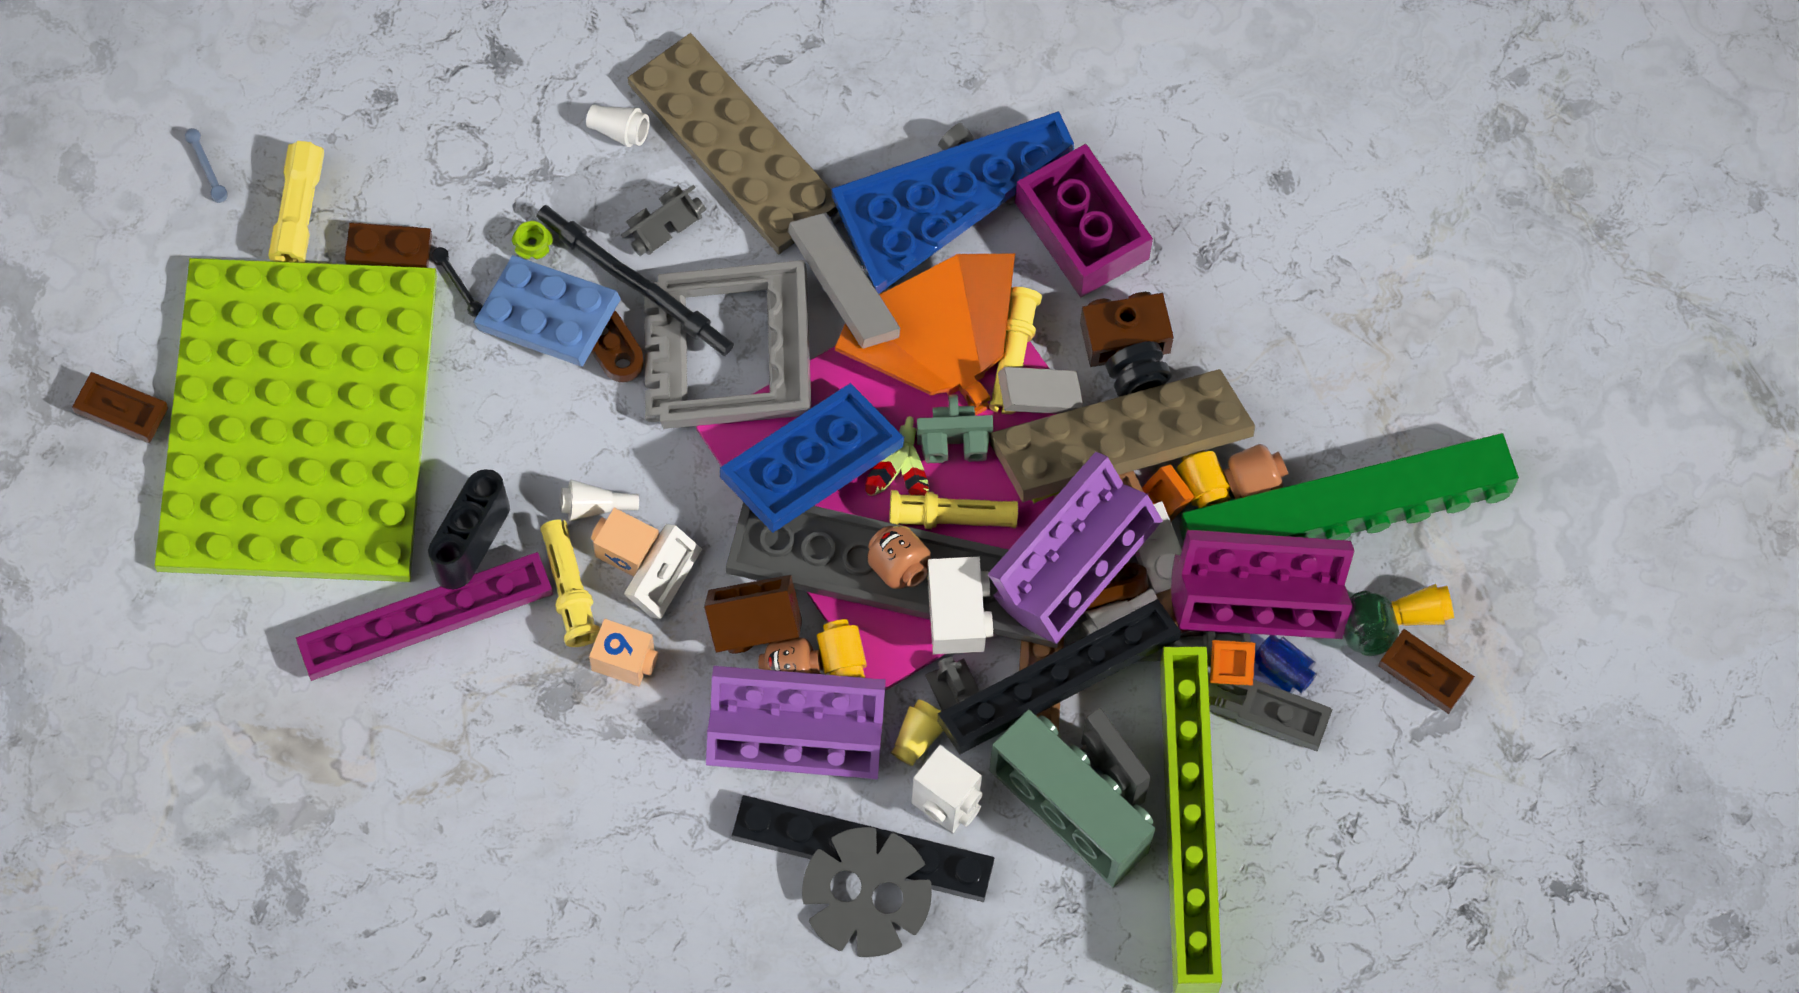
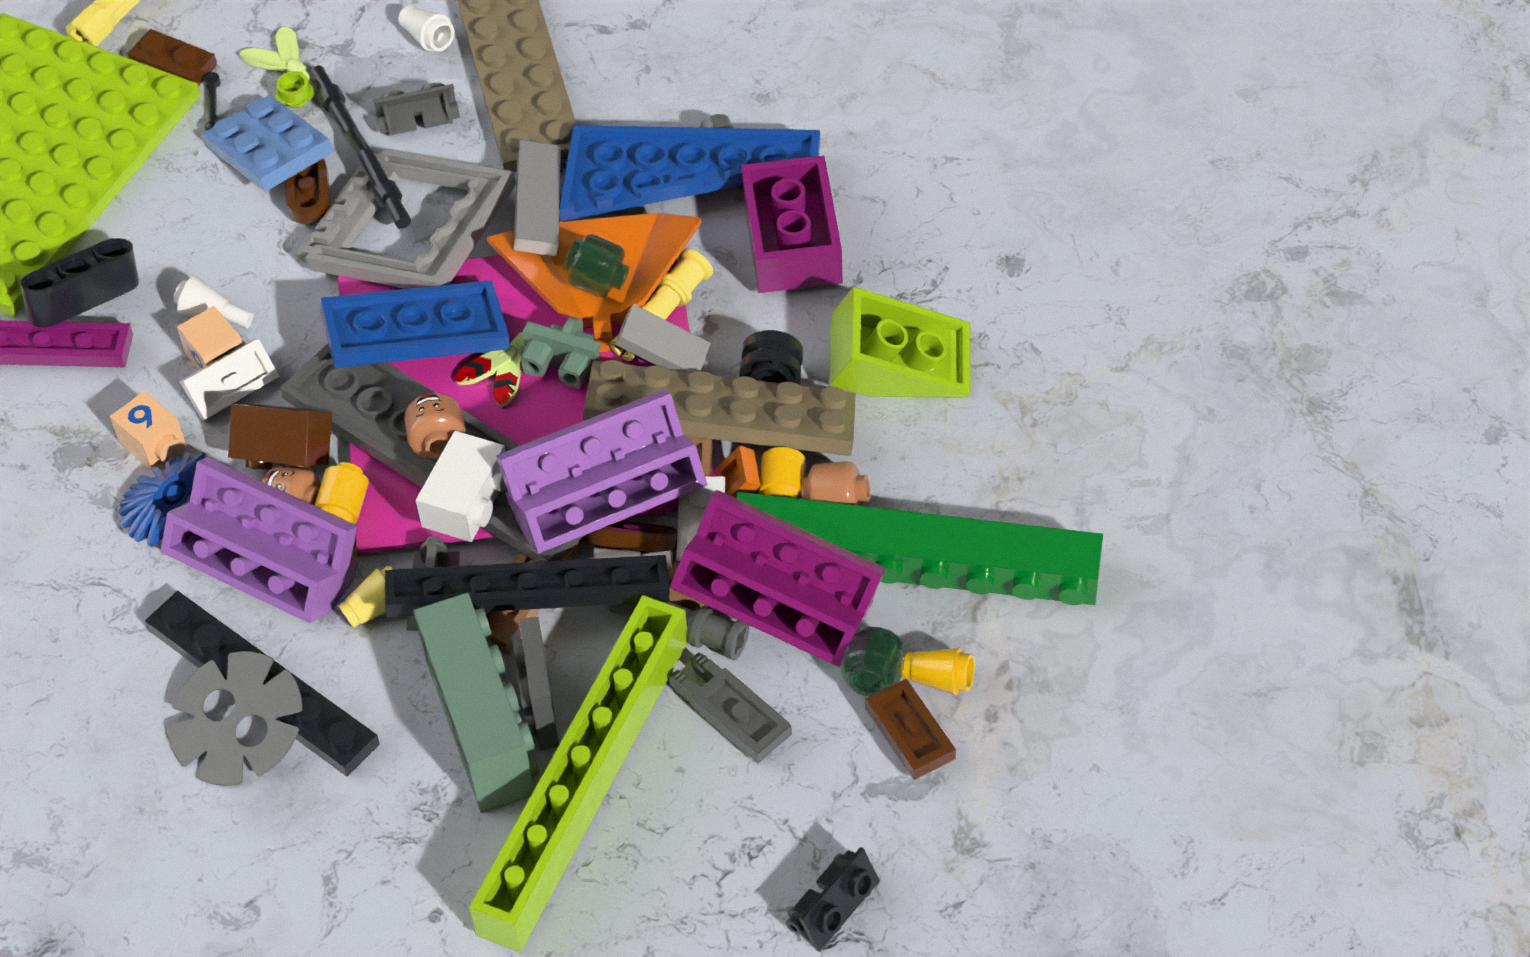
camera: 30 degrees right, 15 degrees down
(497, 205) = (284, 60): none -> yellowish green piece
(573, 601) = (137, 373): light yellow pin -> none
(663, 715) = (153, 497): none -> blue hair
(931, 510) = (502, 410): light yellow pin -> none
(945, 337) = (596, 265): none -> clear green head
(947, 790) = (359, 648): white brick -> none
(1117, 324) = (800, 317): reddish brown brick -> none
(1232, 662) = (709, 641): orange tile -> none
(1236, 312) = (897, 349): none -> lime slope
(1285, 664) = (767, 668): clear blue brick -> none
(1440, 860) = (844, 888): none -> black hinge

